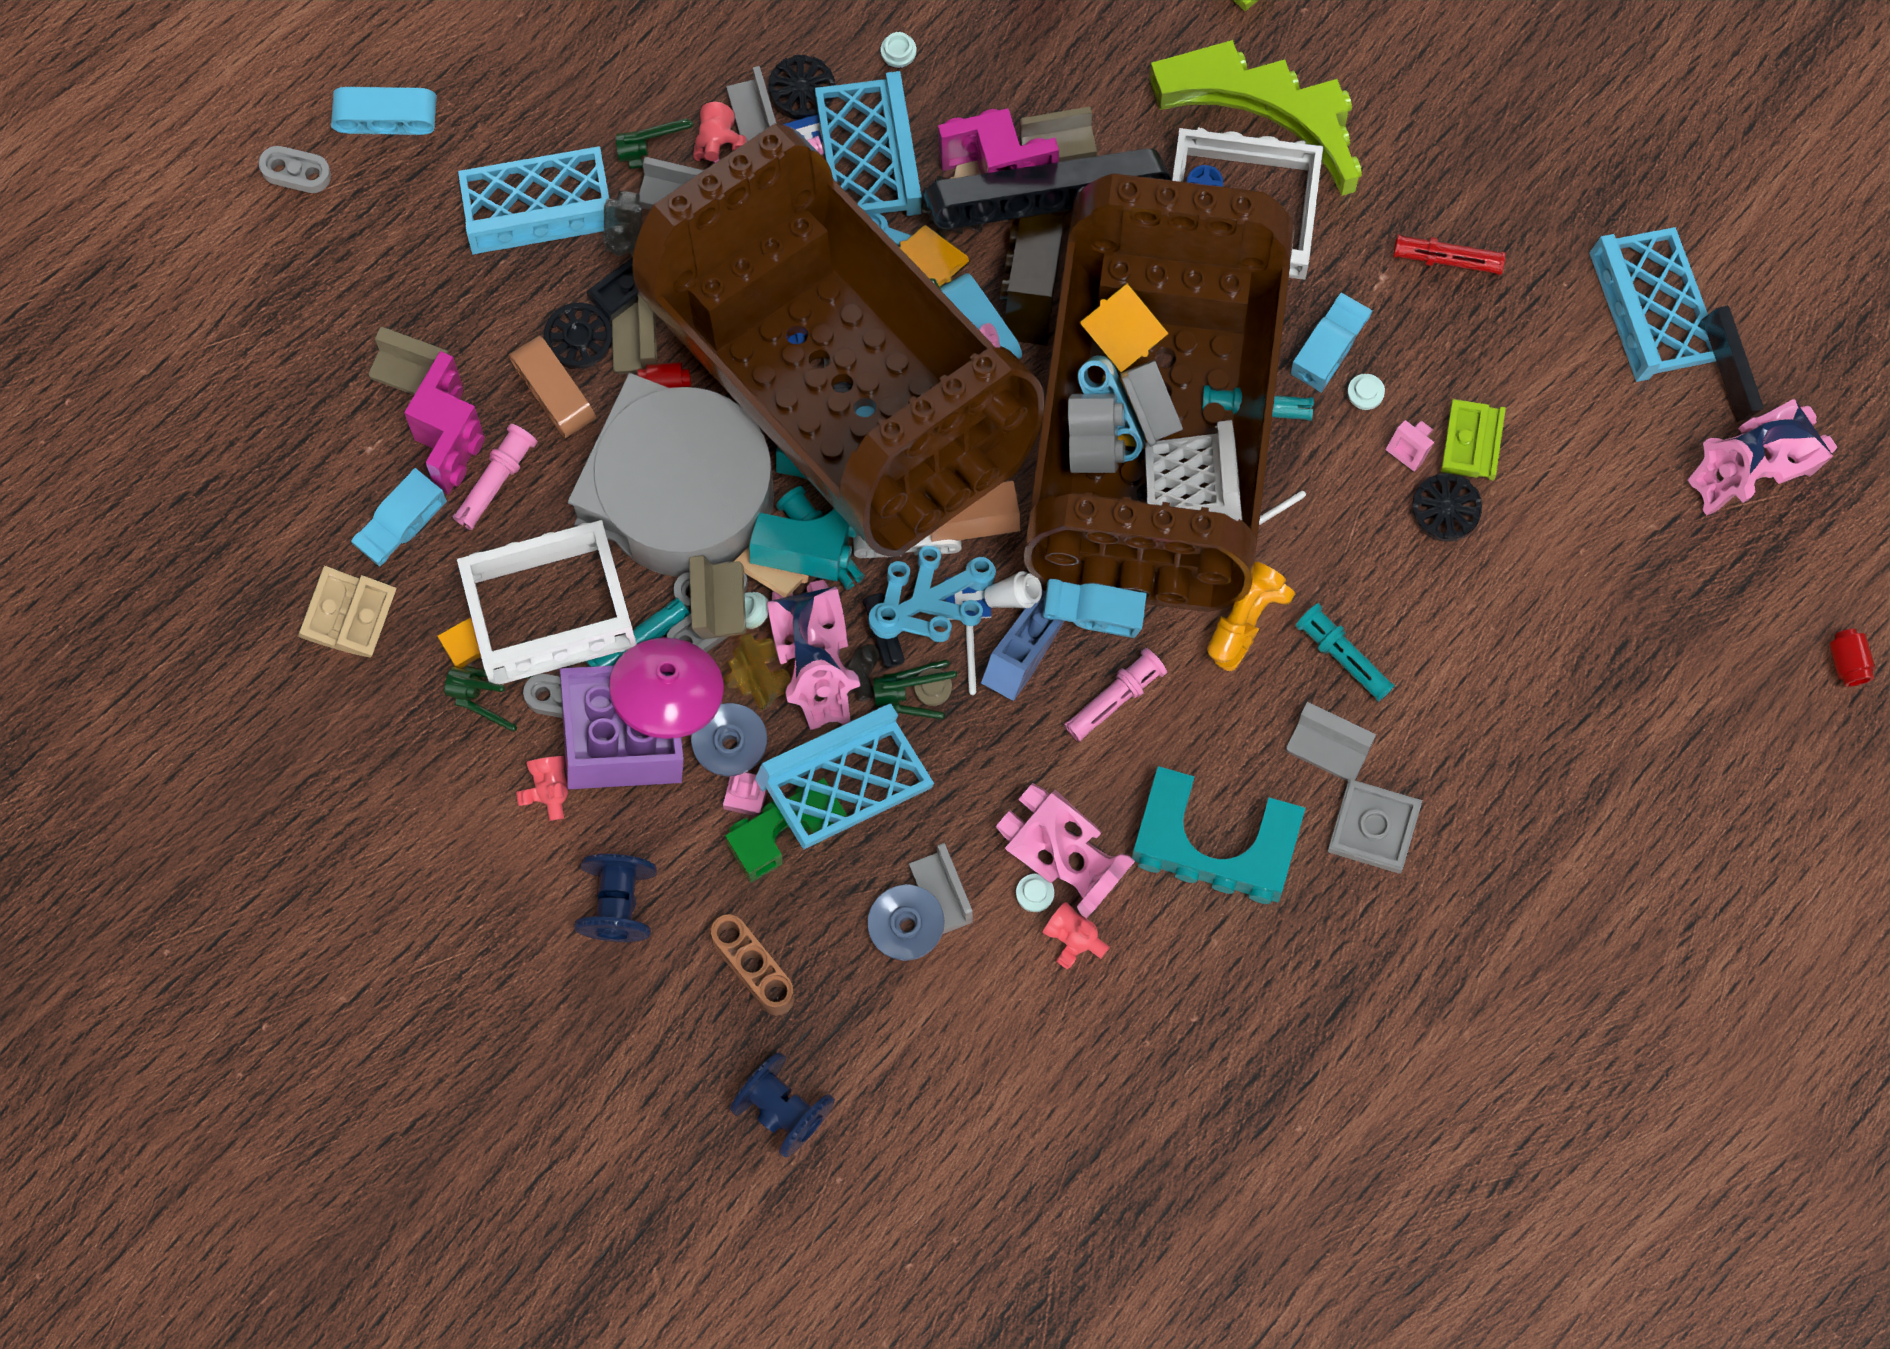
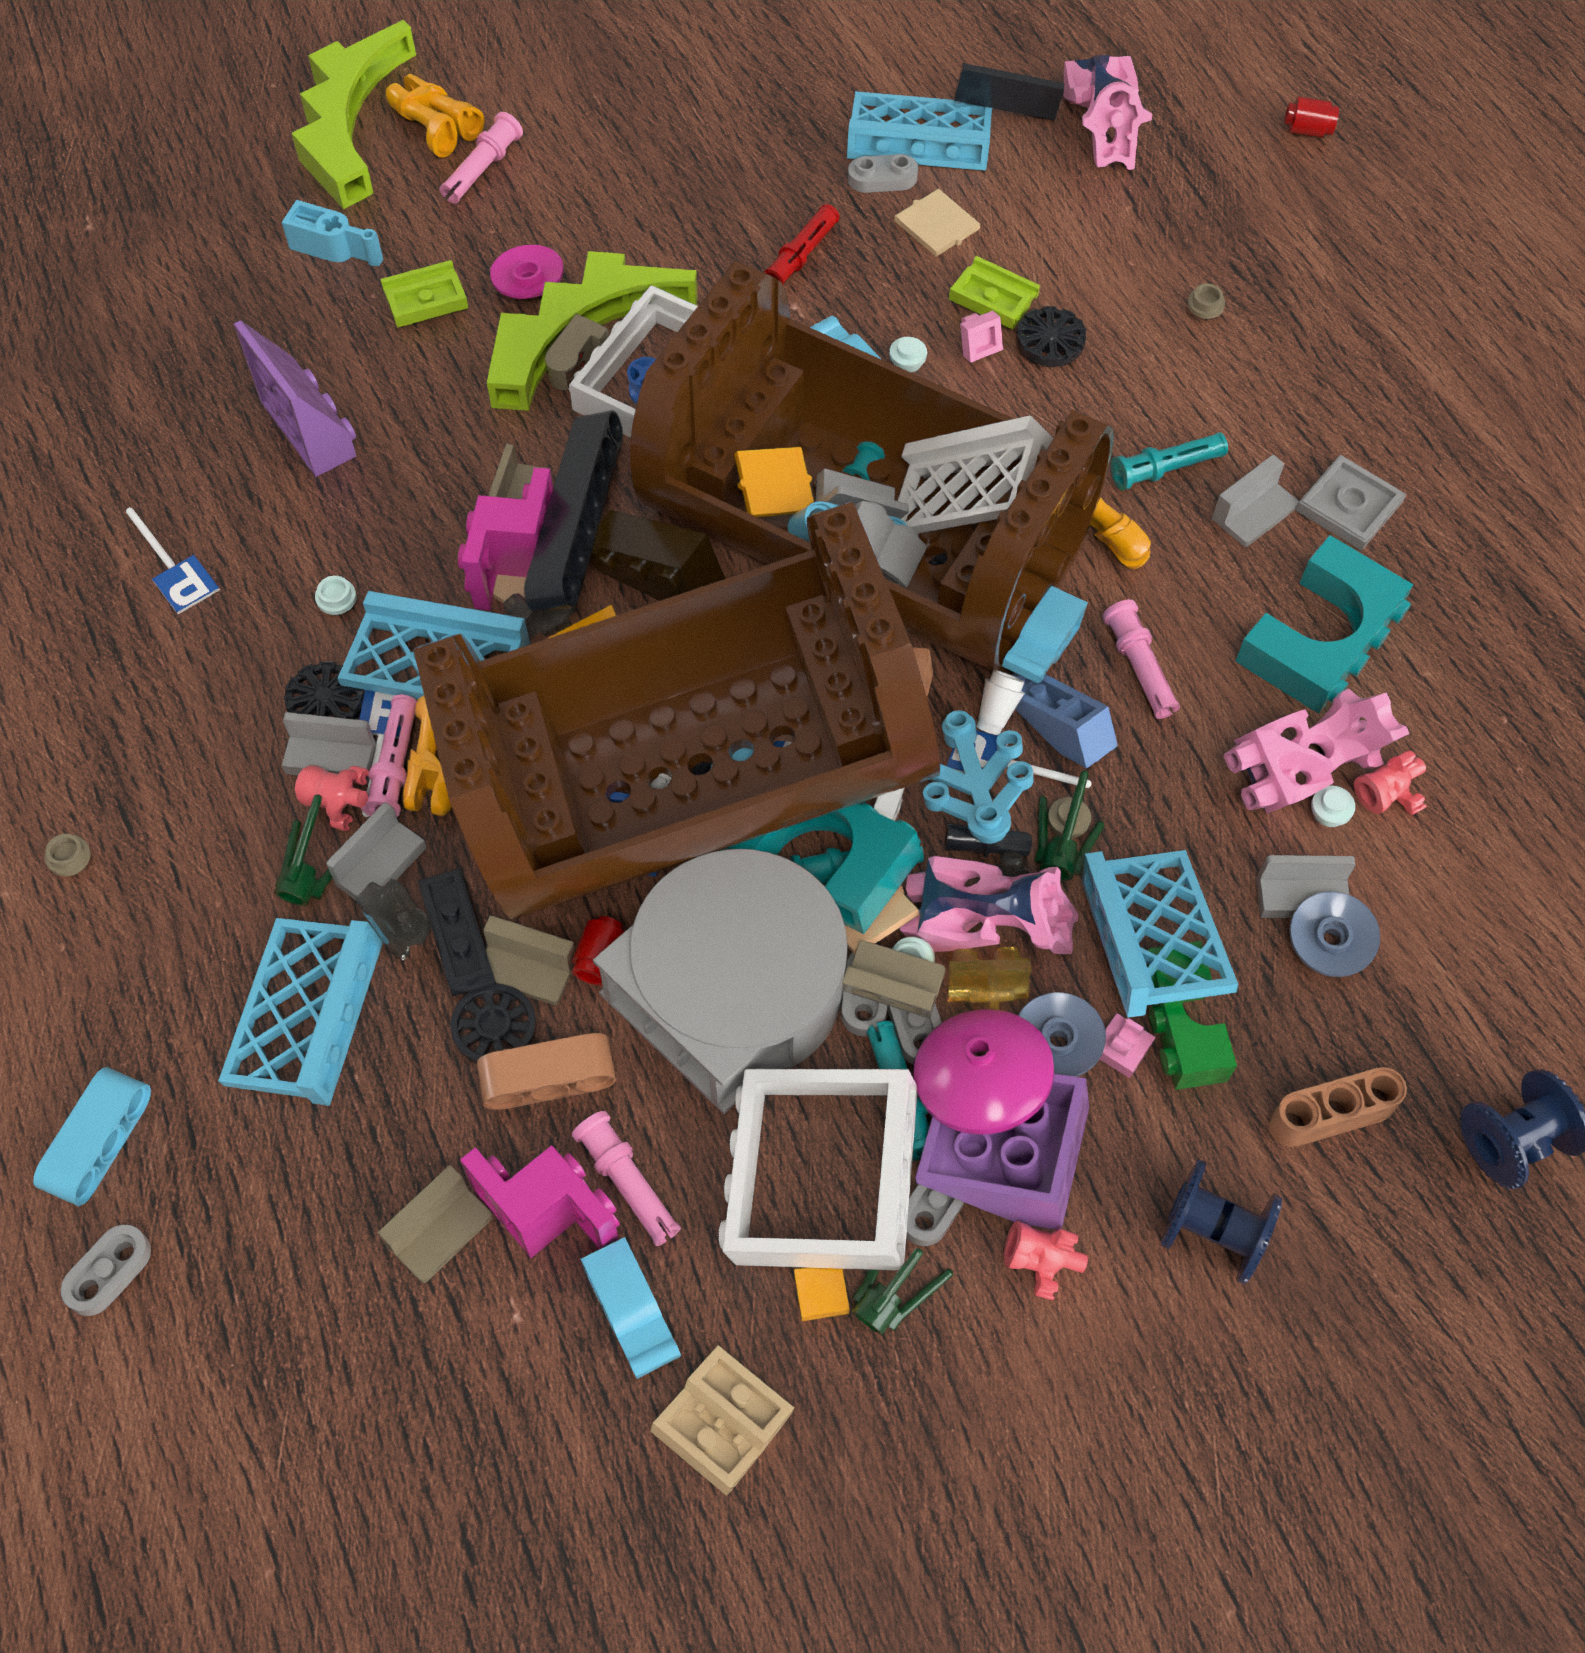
camera: 70 degrees left, 10 degrees down
(1229, 114) = (573, 350): none -> dark tan leg
(1301, 28) = (525, 269): none -> dark pink dish
(1545, 361) = (937, 222): none -> tan piece
(1555, 631) = (1206, 301): none -> dark tan plate
(1579, 289) = (882, 173): none -> light grey plate

